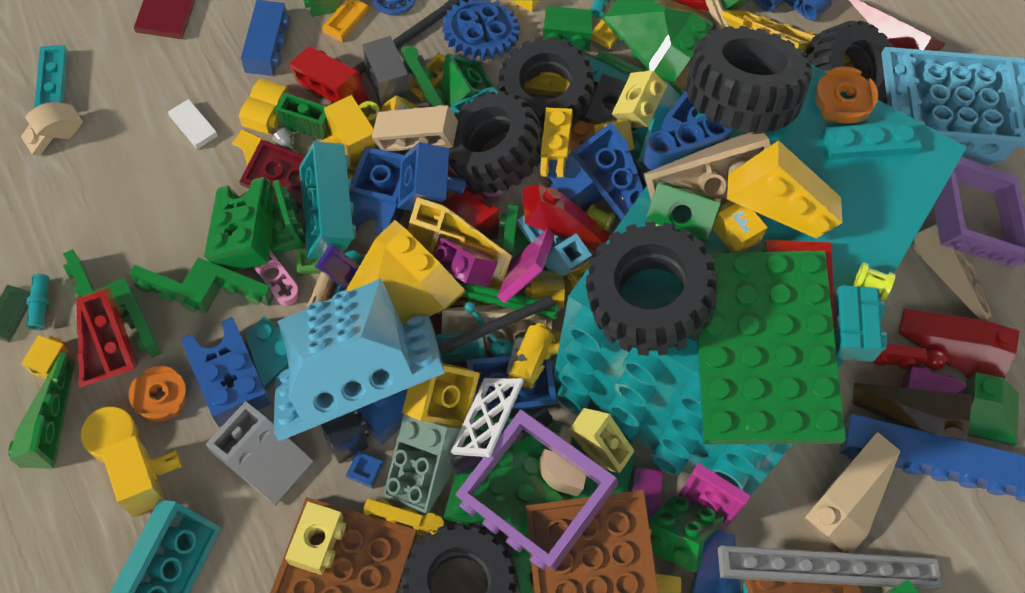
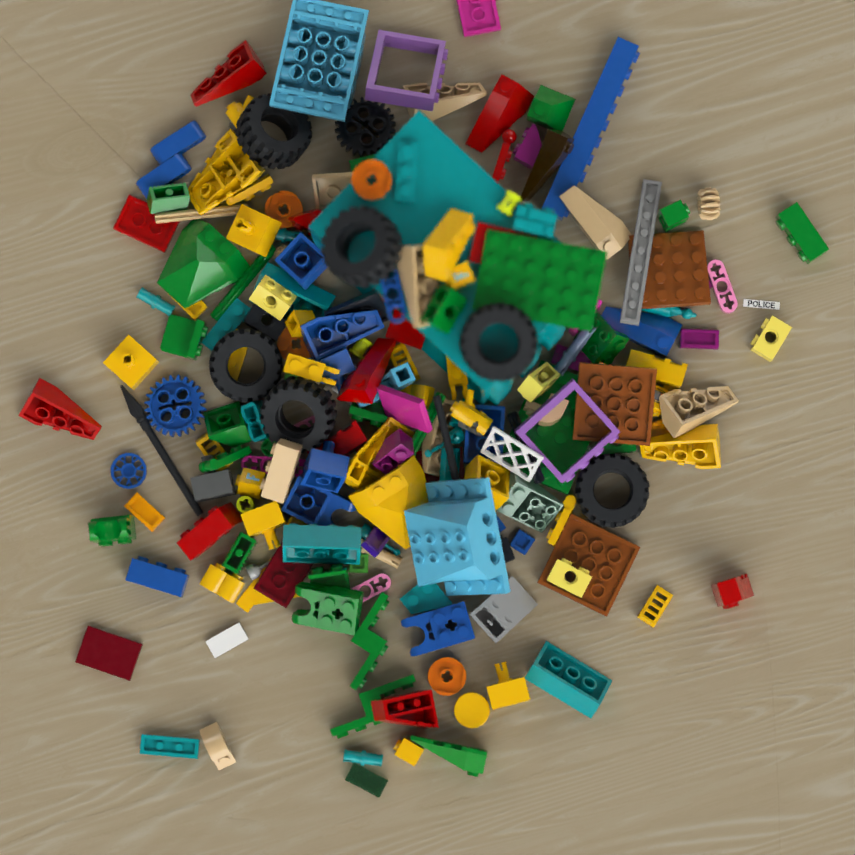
camera: 70 degrees left, 20 degrees up
(662, 491) = (571, 353): none -> sand blue pin

